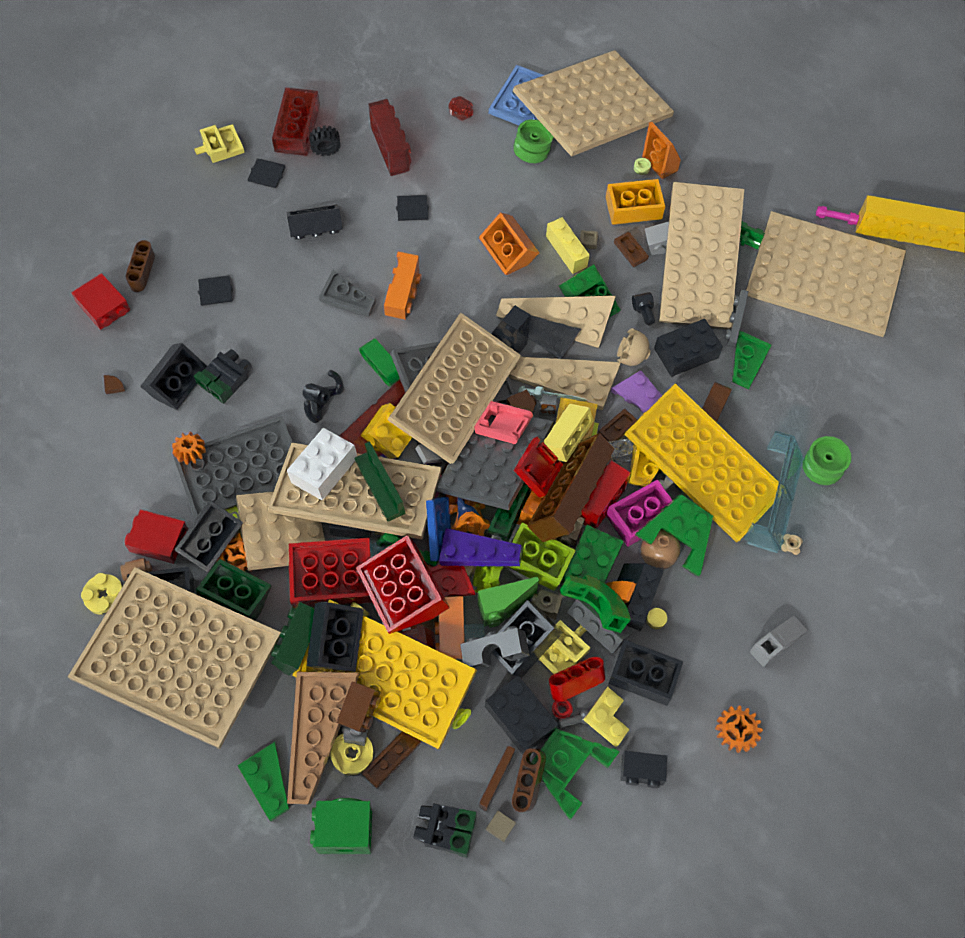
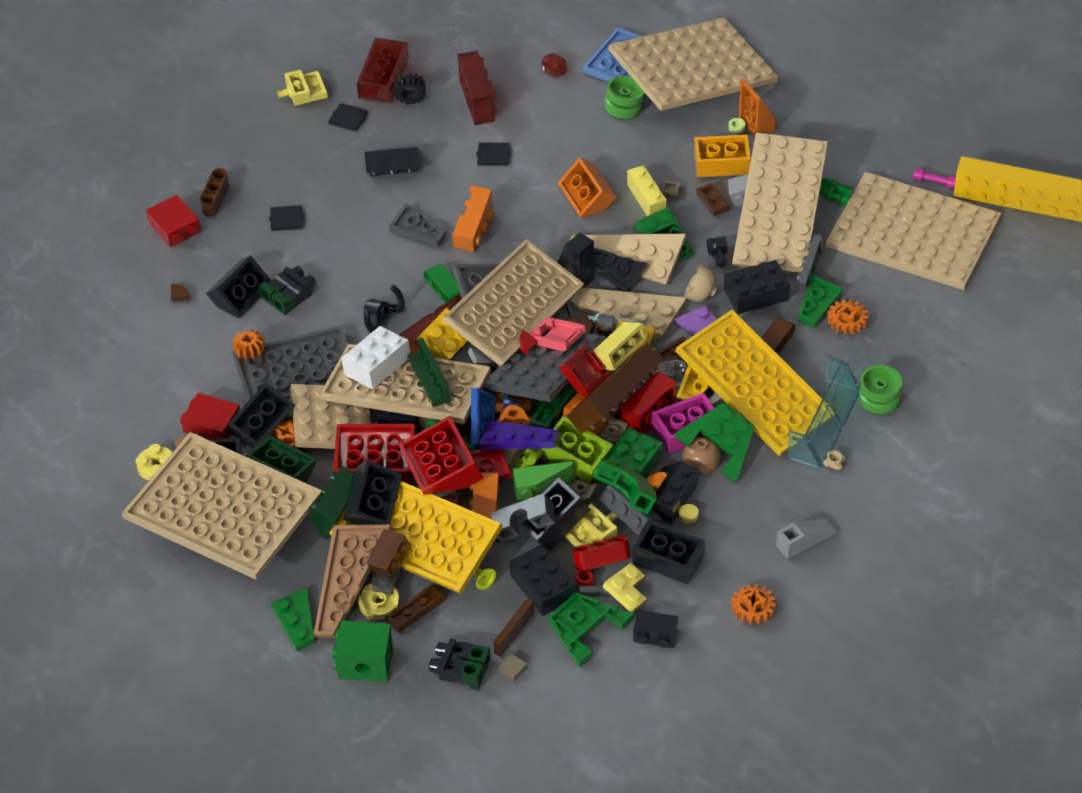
camera: 10 degrees right, 15 degrees down
(474, 434) = (526, 341): none -> red tile
(521, 788) = (542, 636): reddish brown beam -> none
(780, 376) = (847, 317): none -> orange gear

